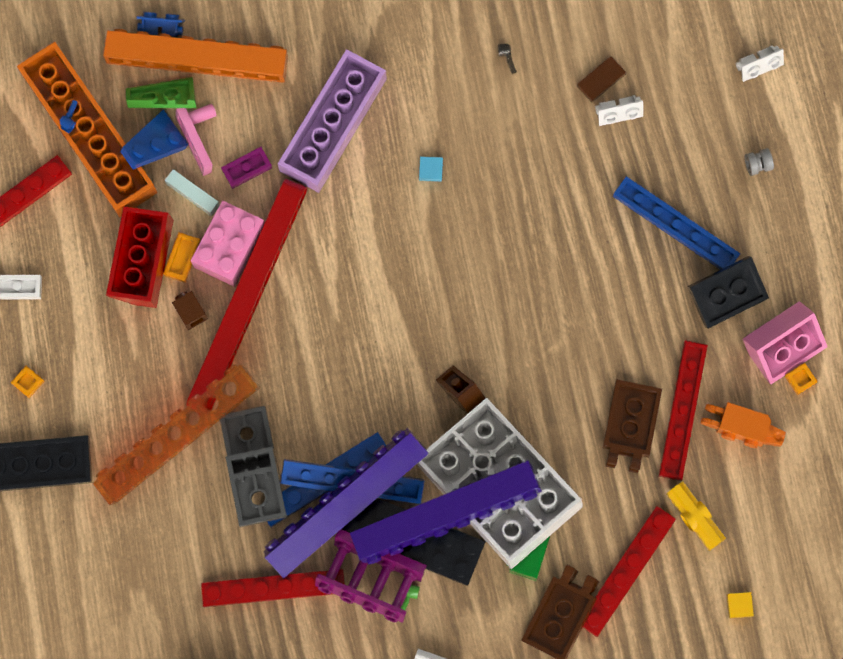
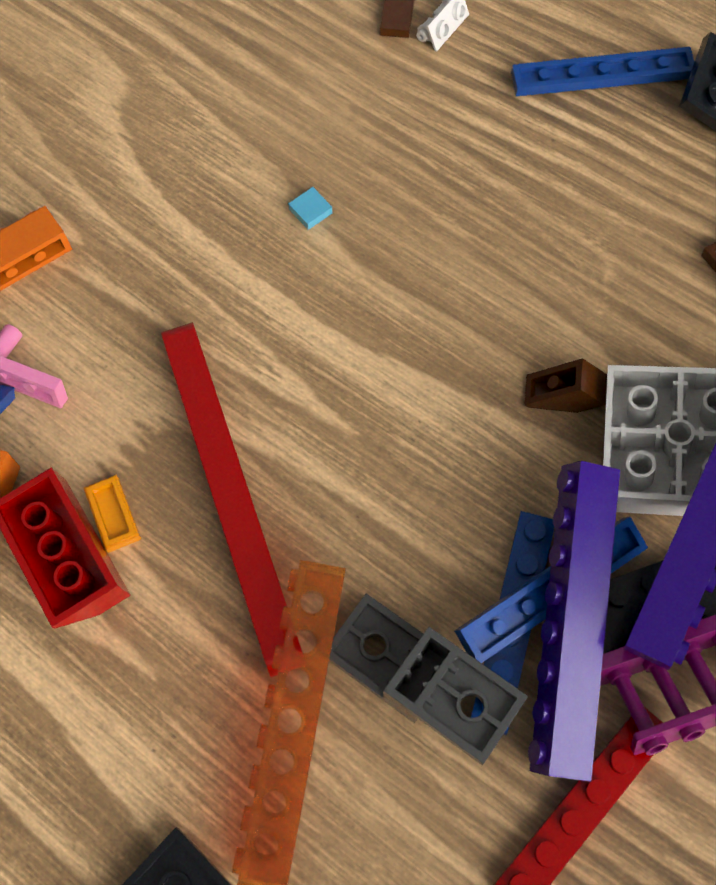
camera: 40 degrees left, 10 degrees down
(27, 381) = (35, 829): light orange tile -> none
(189, 309) = (174, 561): reddish brown brick -> none
(192, 192) = (63, 433): light aqua piece -> none
(227, 243) = (155, 451): bright pink brick -> none
(246, 167) = (105, 358): magenta plate -> none
(332, 121) = (161, 238): lavender brick -> none
(505, 50) = (280, 51): clear smoke hand -> none

